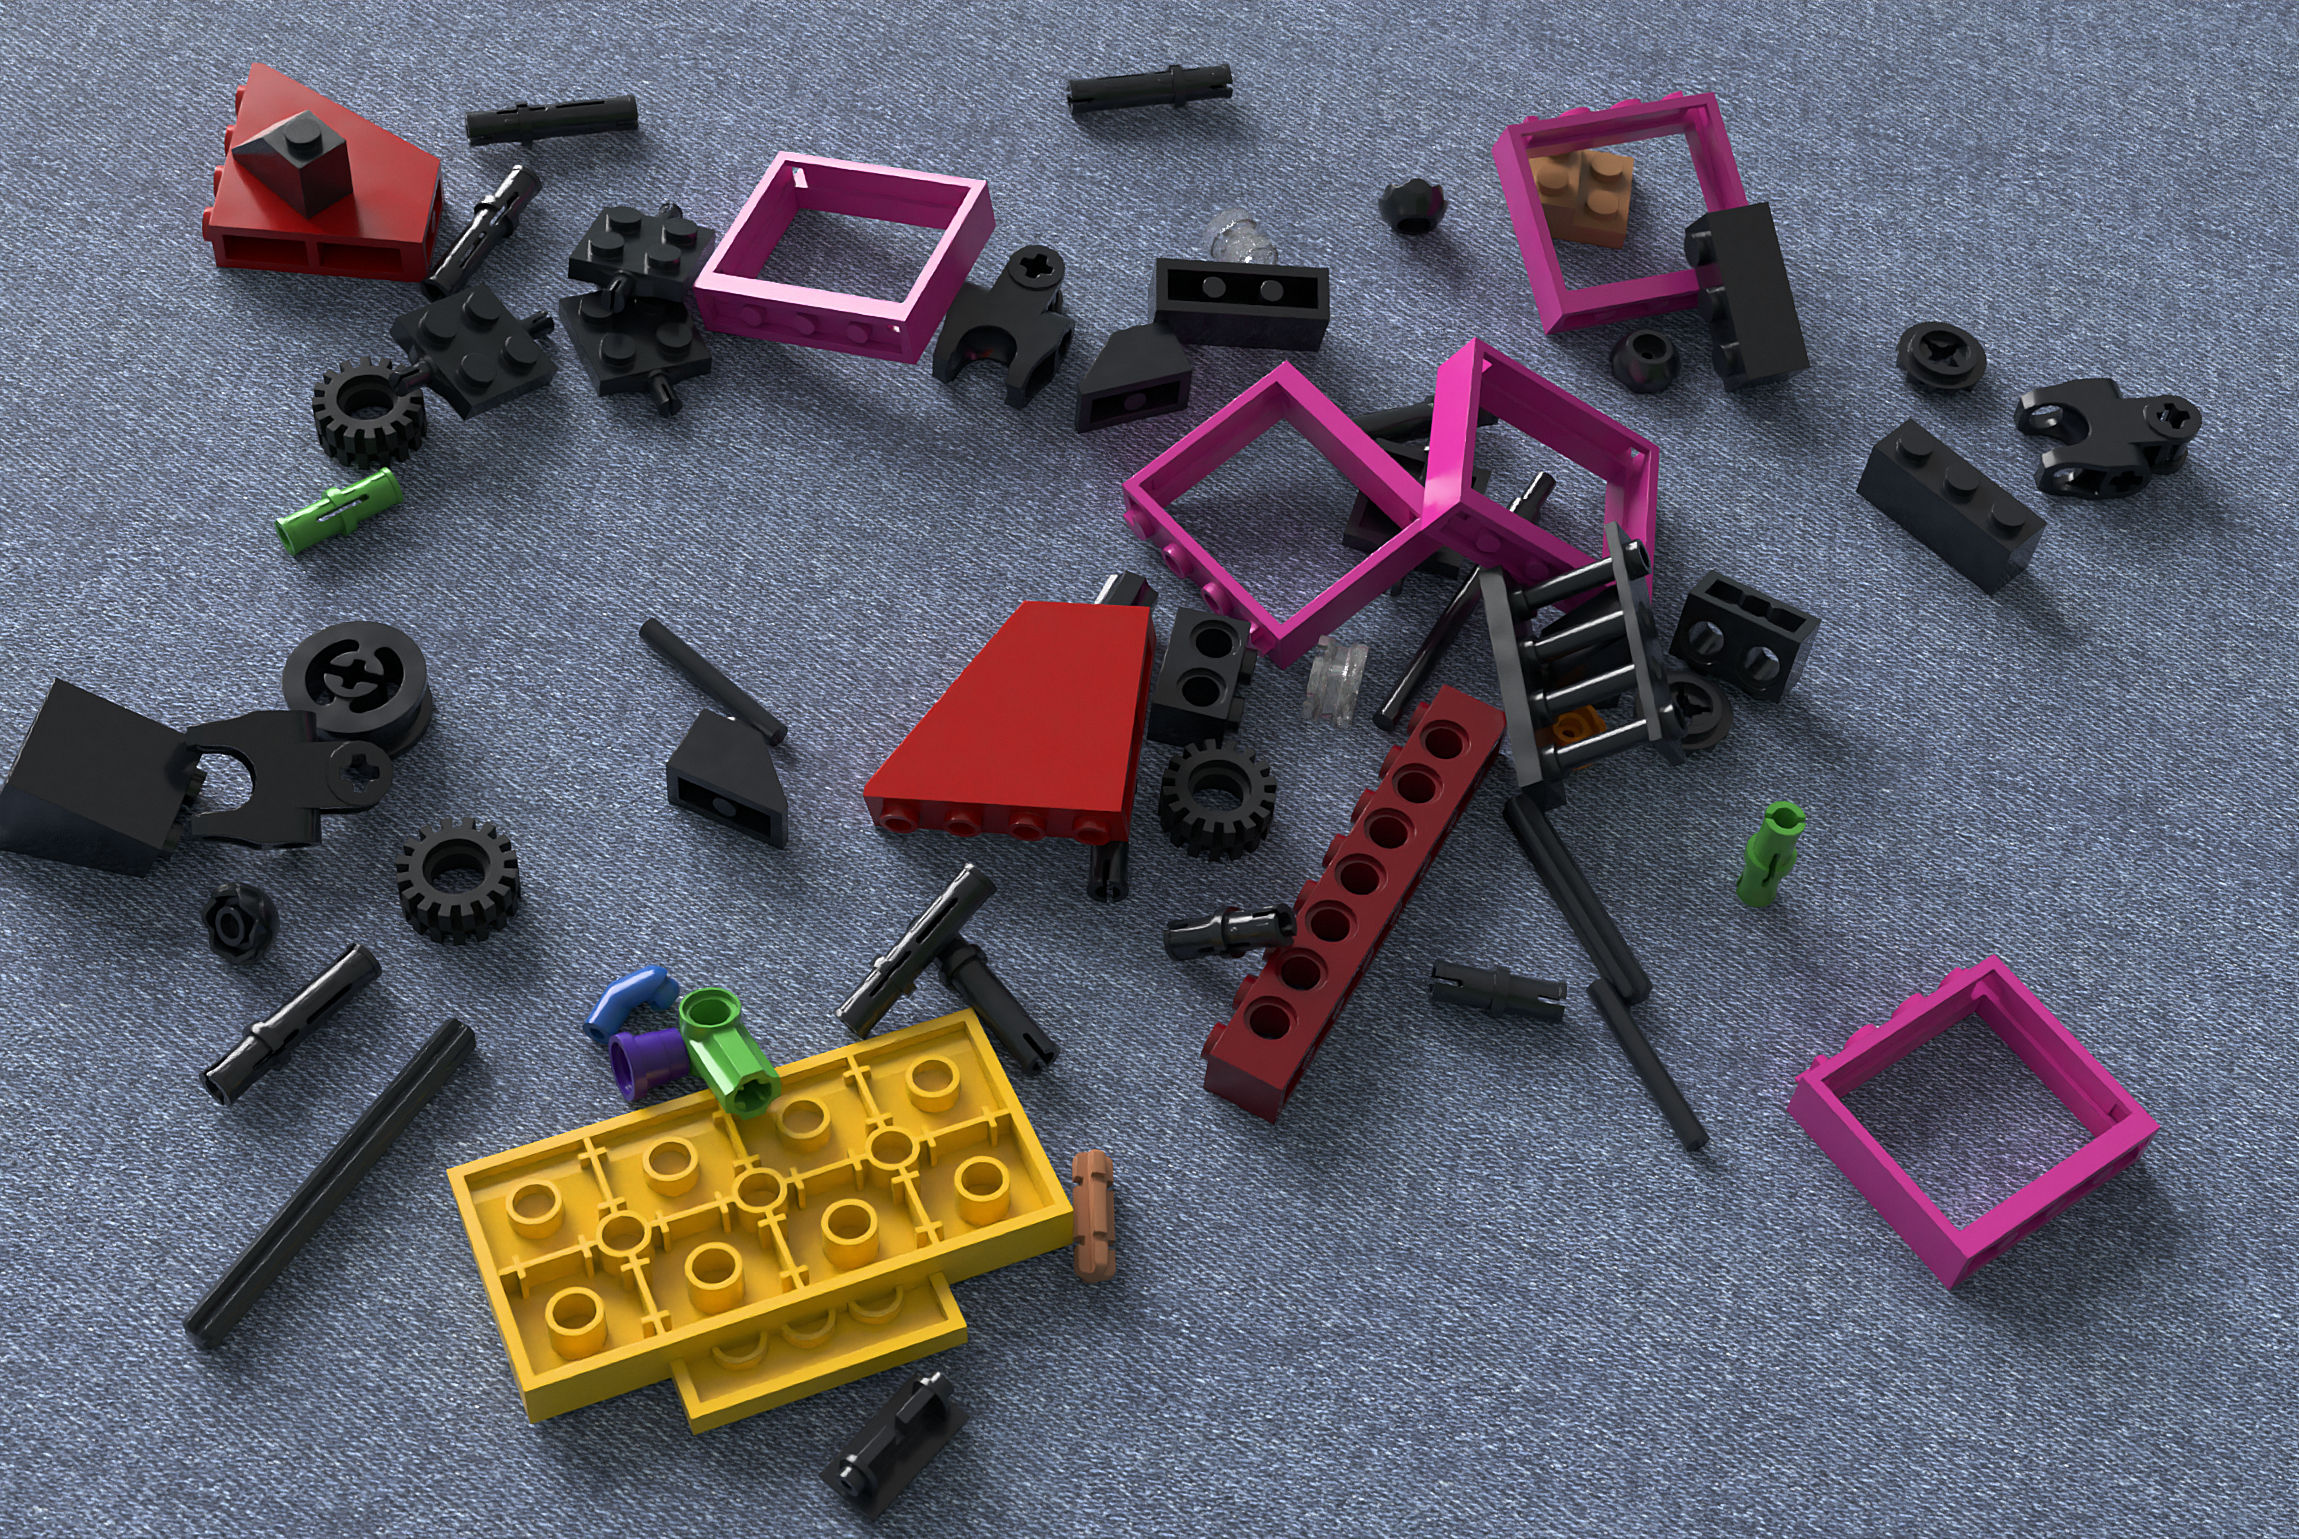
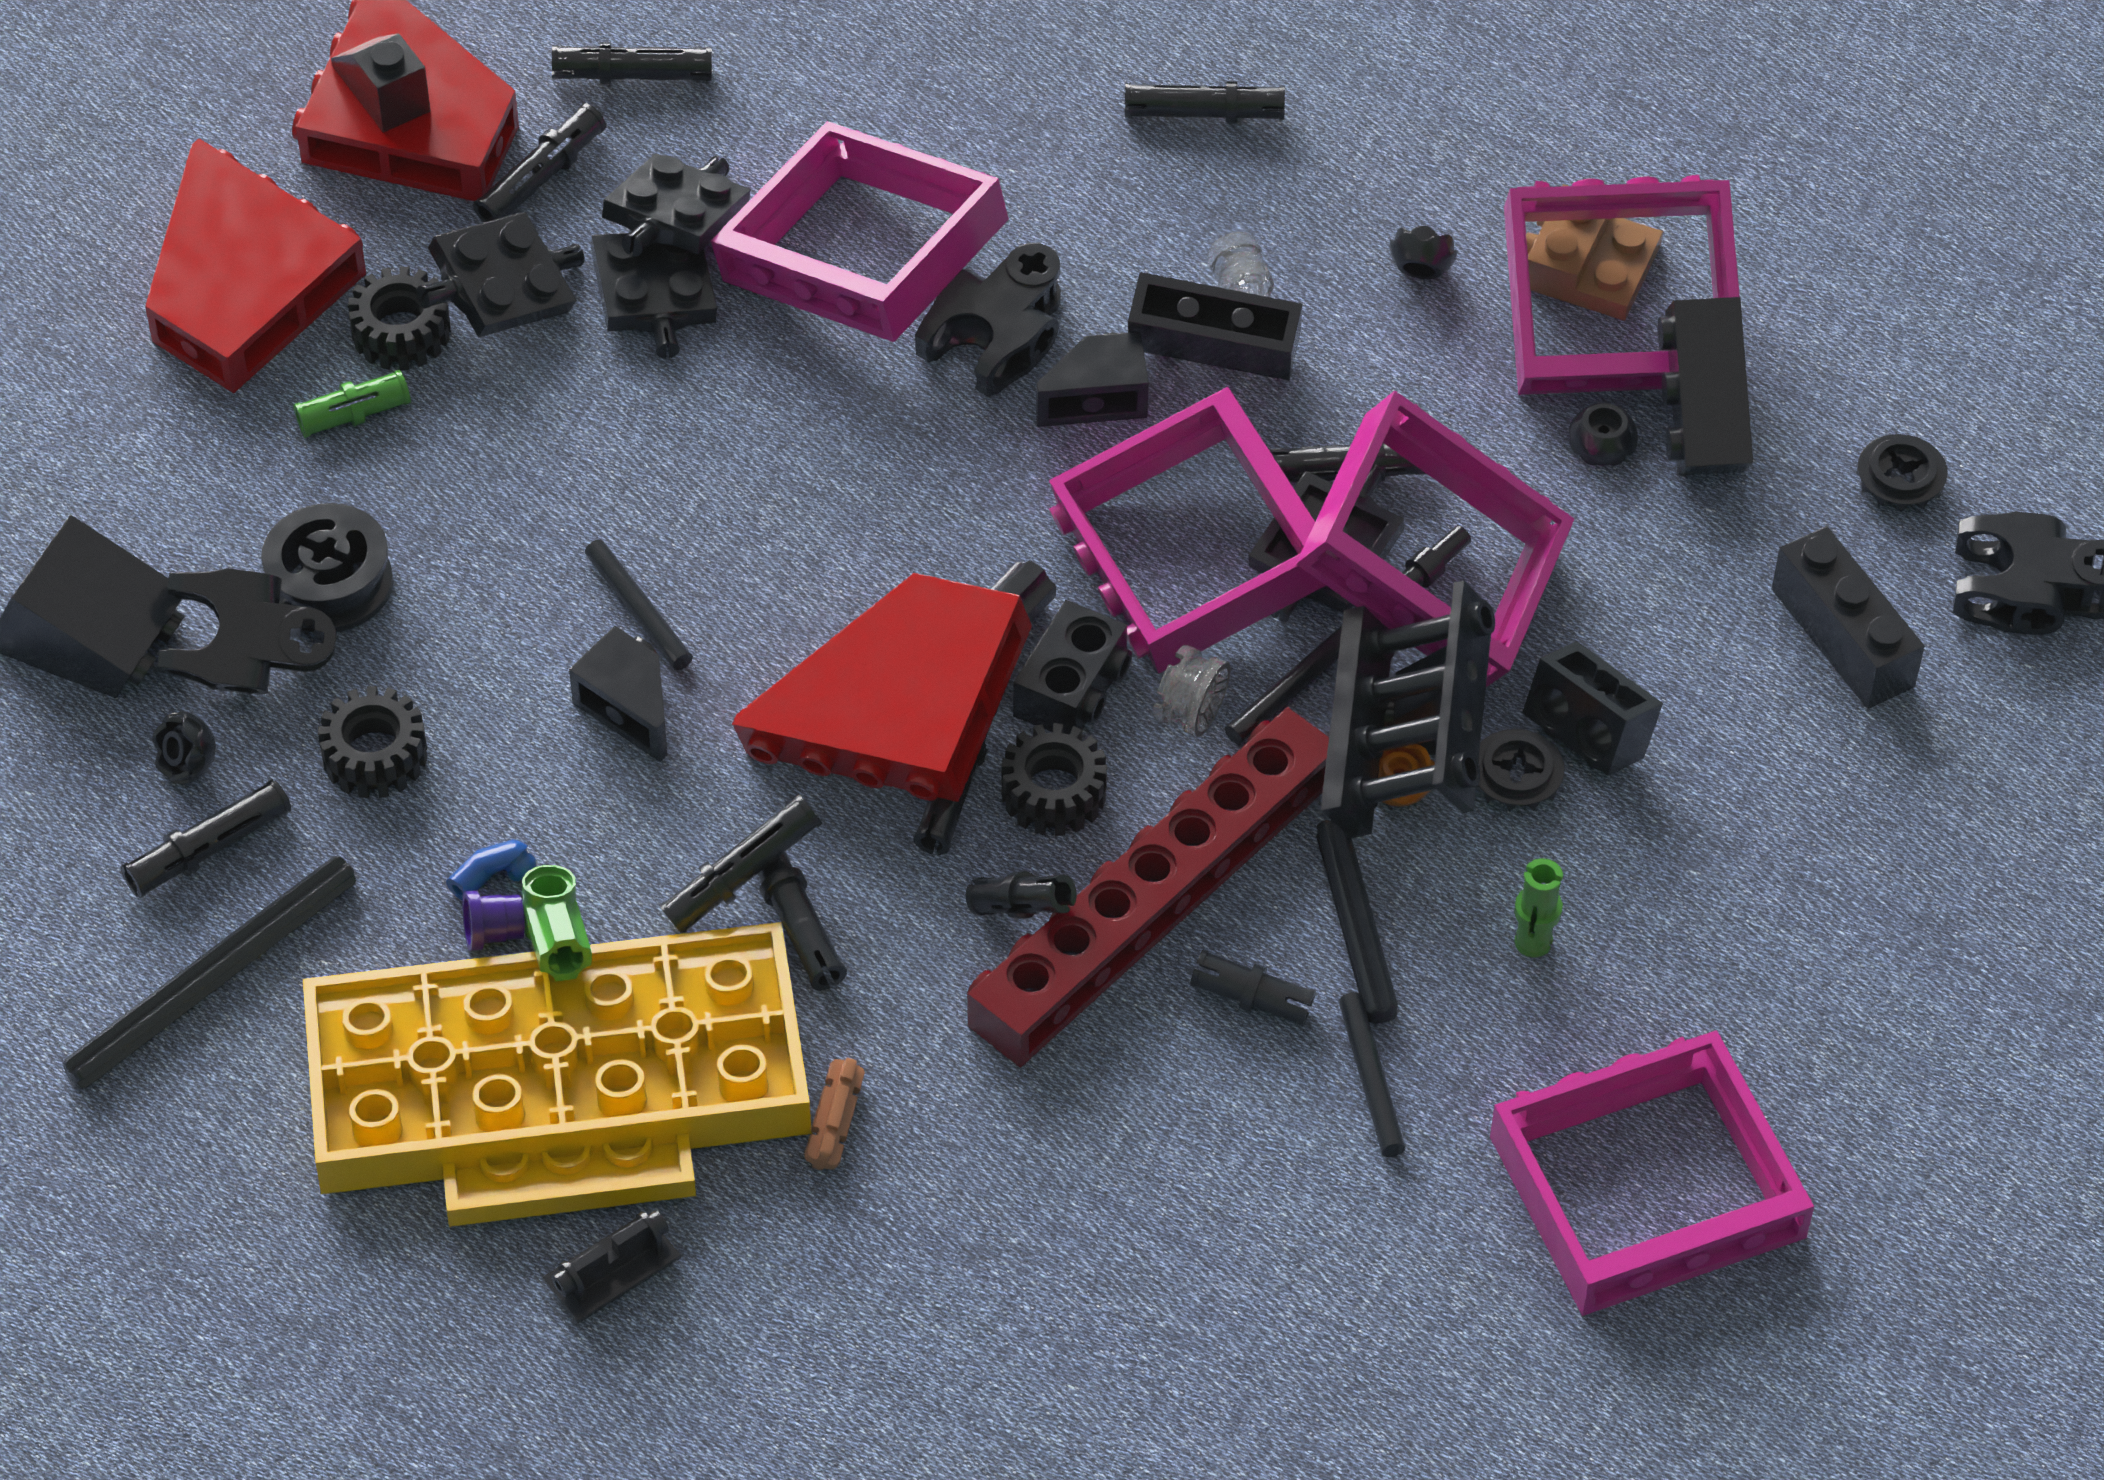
camera: 20 degrees right, 0 degrees up
(182, 384) = (243, 269): none -> red slope

